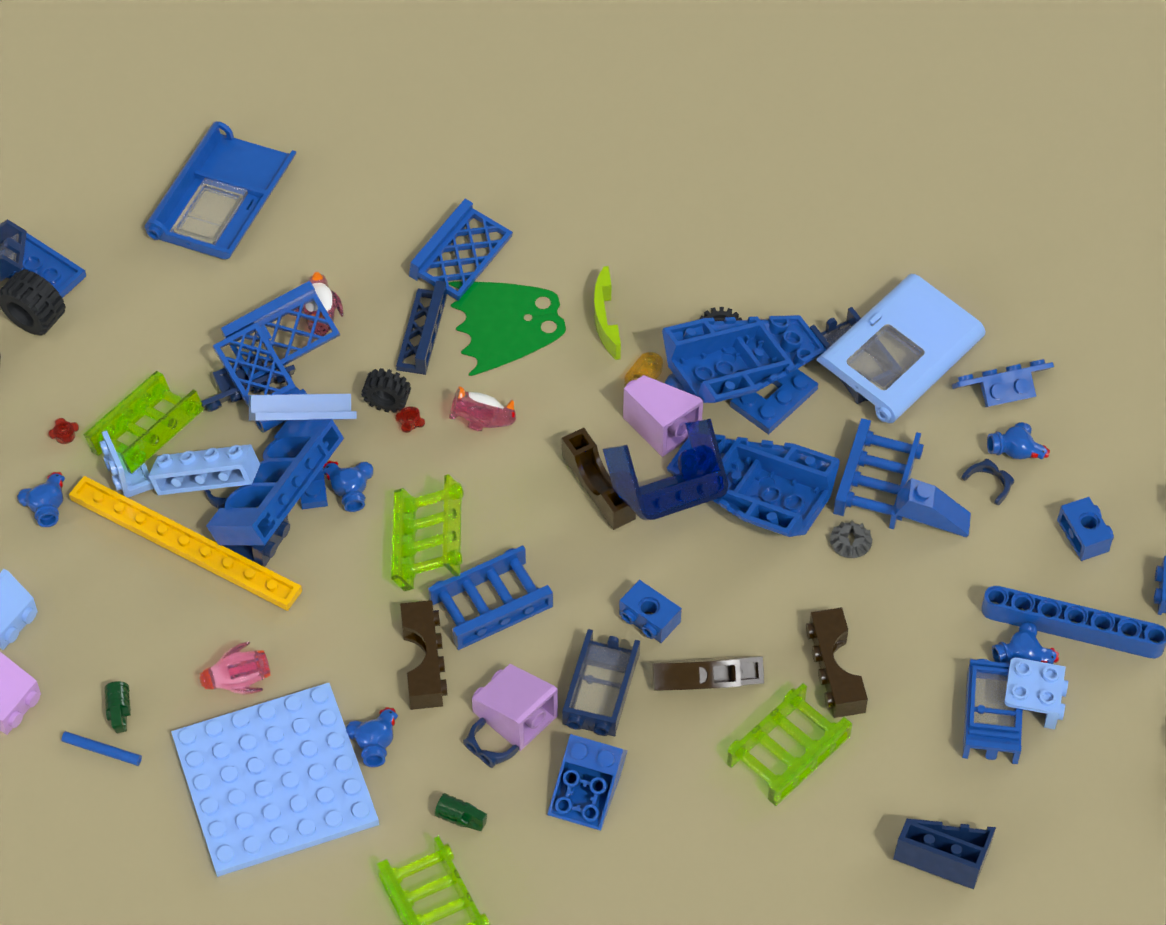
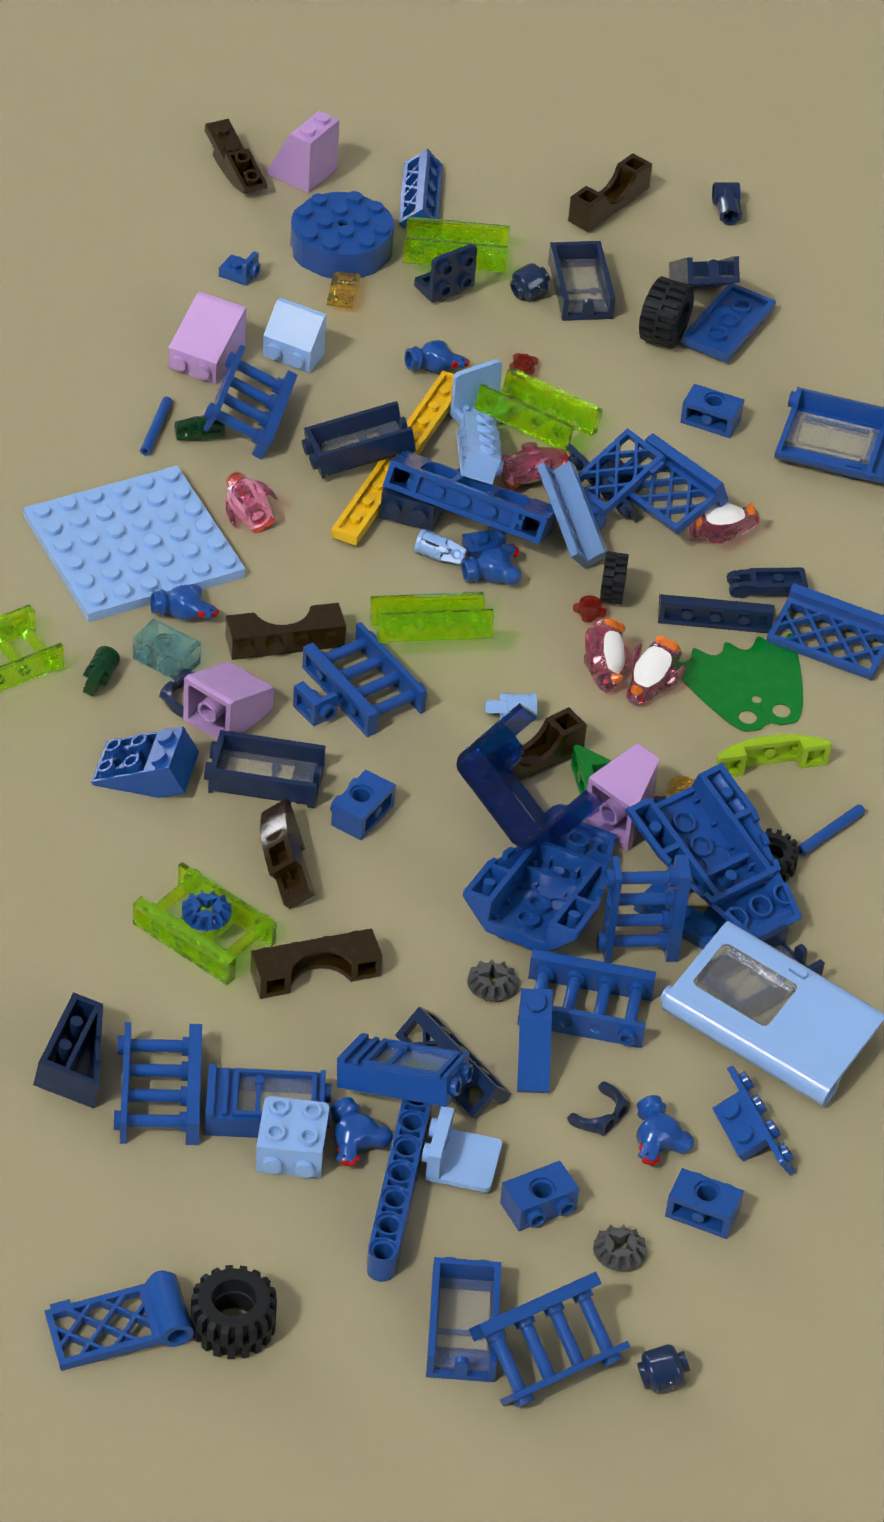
camera: 80 degrees right, 10 degrees down
(101, 638) = (275, 403): none -> blue fence
(159, 293) = (712, 410): none -> blue brick
(169, 571) = (357, 439): none -> dark blue door
(218, 430) = (523, 465): none -> clear pink animal
(318, 523) = (439, 548): none -> light blue hinge
(391, 284) = (765, 581): none -> dark blue hinge
(442, 740) = (166, 649): none -> clear light blue brick
(504, 378) = (654, 670): none -> animal
(522, 641) = (312, 706): none -> blue bracket
(532, 487) = (509, 701): none -> light blue hinge
(637, 442) = (584, 764): none -> green slope
(686, 287) = (831, 829): none -> blue piece
(786, 747) = (205, 919): none -> blue gear
(816, 404) = (671, 919): none -> blue fence
(937, 568) = (446, 1039): none -> dark blue fence
(974, 600) = (403, 1070): none -> blue door
(974, 763) = (187, 1096): none -> blue fence
(1045, 575) = (460, 1156): none -> light blue bracket
(1087, 422) = (704, 1203): none -> blue brick
(1128, 493) = (623, 1258): none -> dark grey gear

